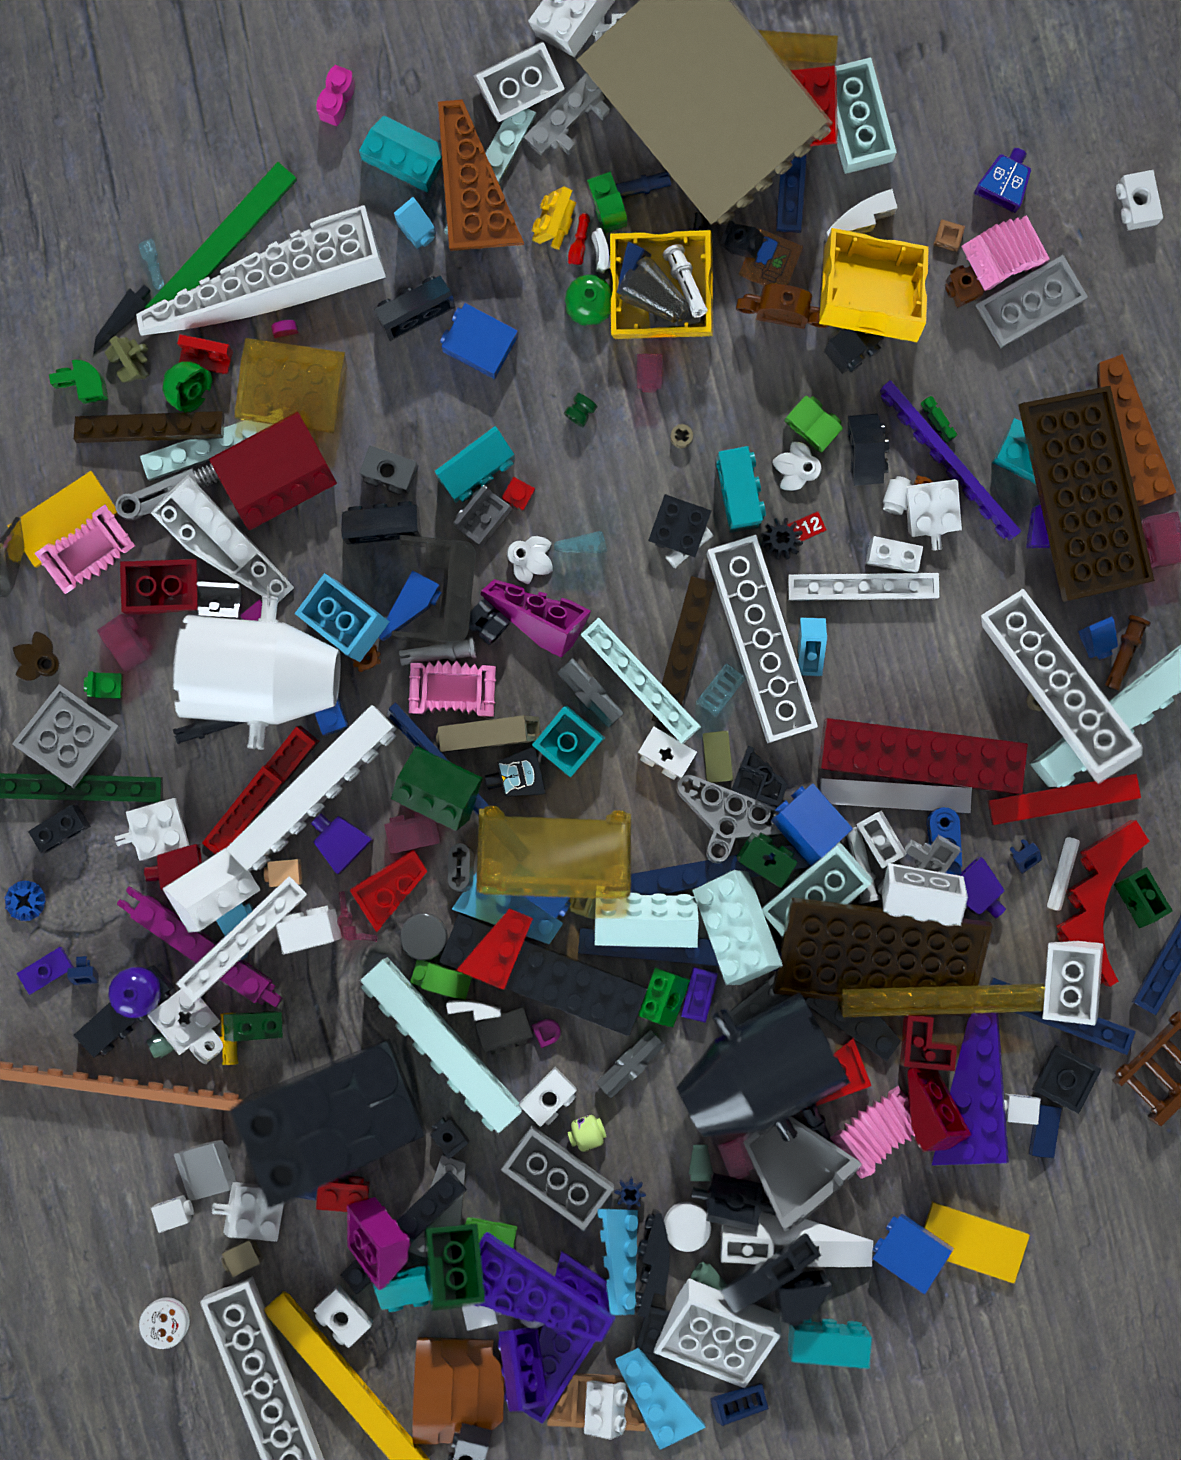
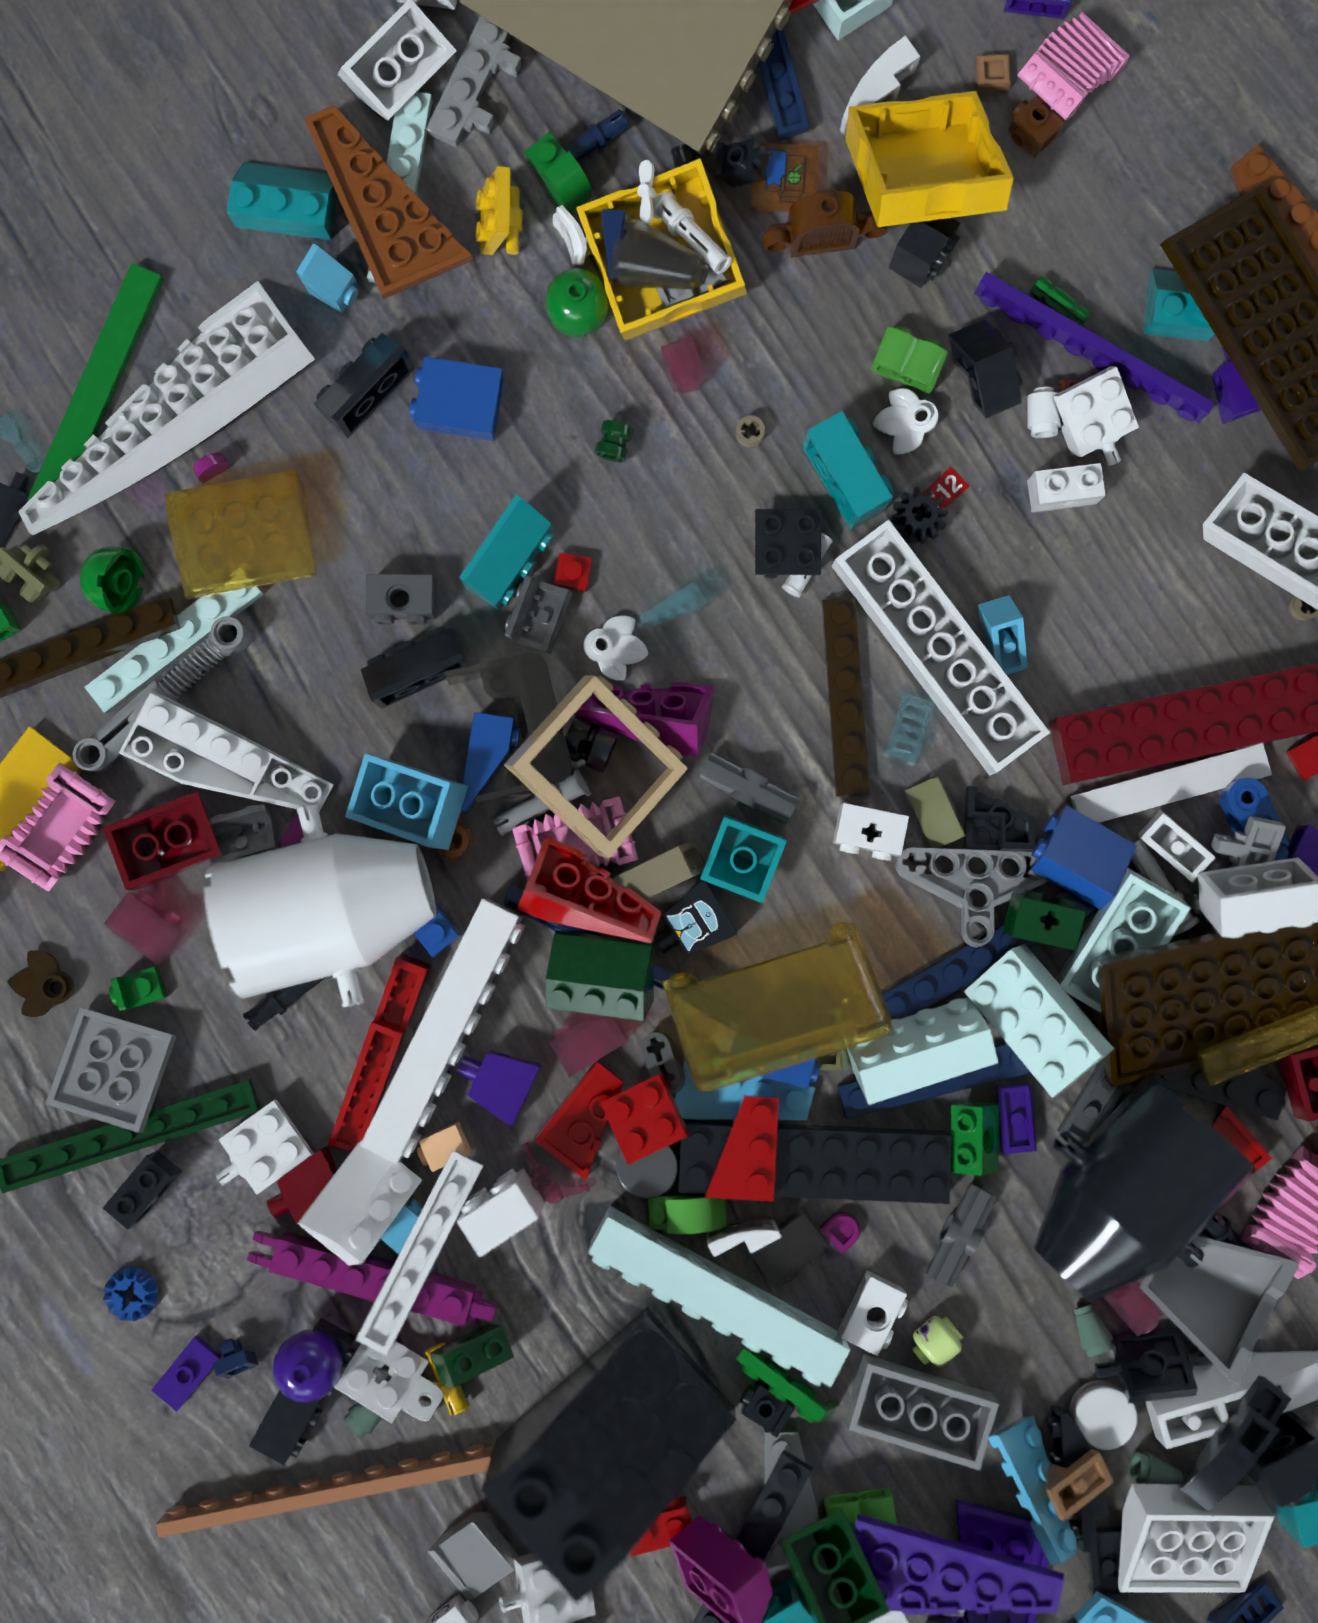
camera: 15 degrees left, 0 degrees up
(208, 354) = (128, 529): red bracket -> none
(273, 471) = (256, 647): dark red slope -> none
(333, 99) = (174, 156): dark pink brick -> none
(433, 901) = (645, 1119): none -> red plate
(441, 725) = (577, 894): none -> red wedge
(452, 663) = (557, 803): none -> tan window
(453, 1105) = (802, 1395): none -> green wing
(577, 249) = (540, 244): red piece -> none
(629, 1200) = (1017, 1407): dark blue gear -> none
(640, 681) = (807, 752): light aqua plate -> none
(649, 1263) = (1078, 1484): none -> medium nougat slope
(663, 240) = (646, 191): none -> white piece
(863, 586) = (1040, 540): white plate -> none
(1031, 301) = (1124, 117): light grey plate -> none

